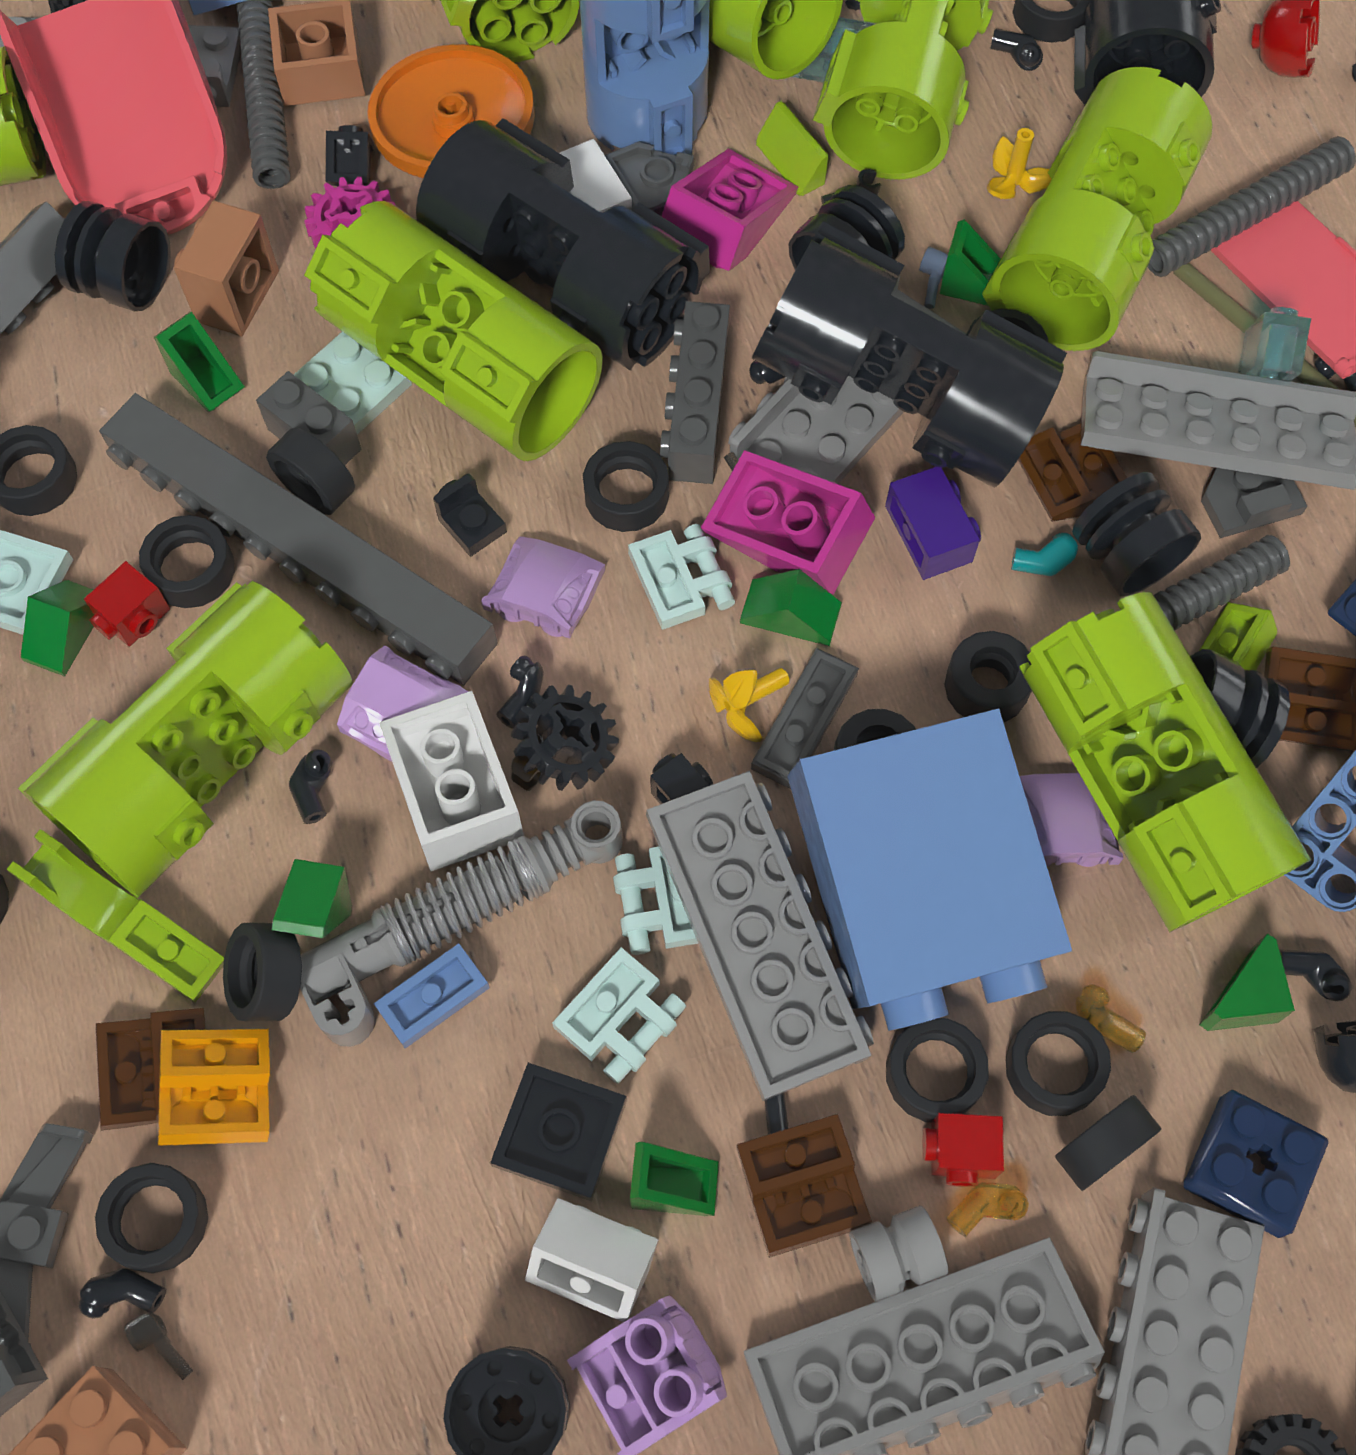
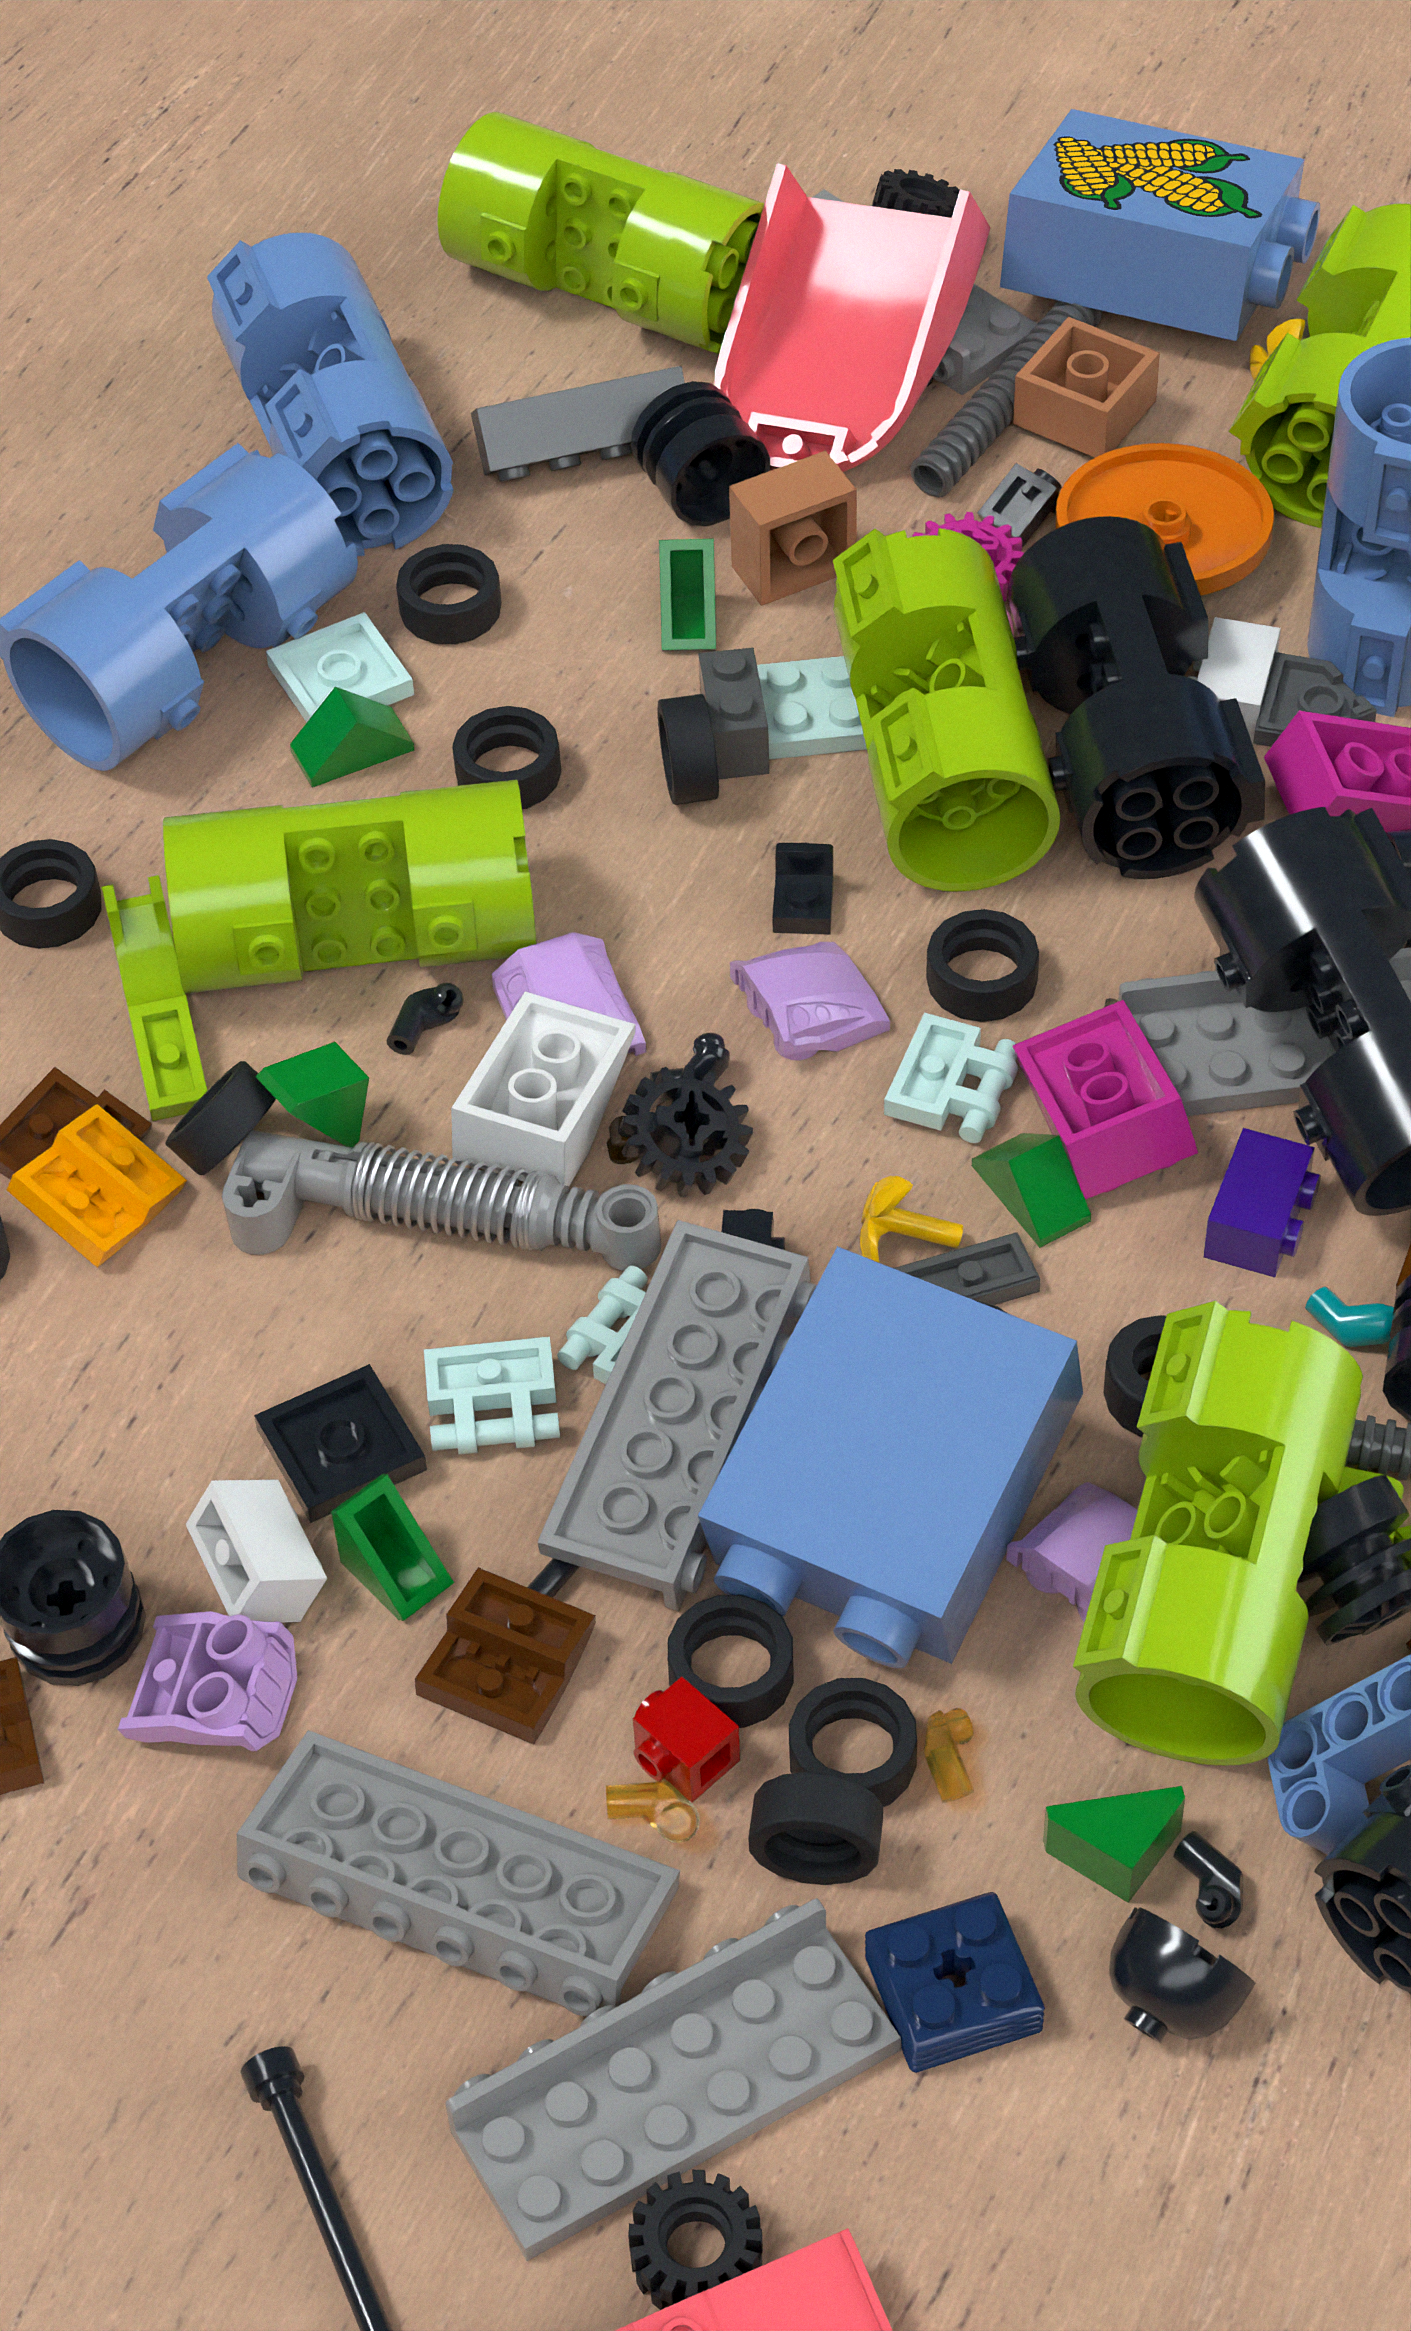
camera: 45 degrees right, 15 degrees down
(126, 605) = (415, 754): red brick -> none
(300, 539) = (624, 812): dark grey brick -> none
(431, 995) = (347, 1255): medium blue plate -> none
(698, 392) = (1131, 931): dark grey brick -> none
(898, 1253) = (530, 1766): light grey wheel -> none

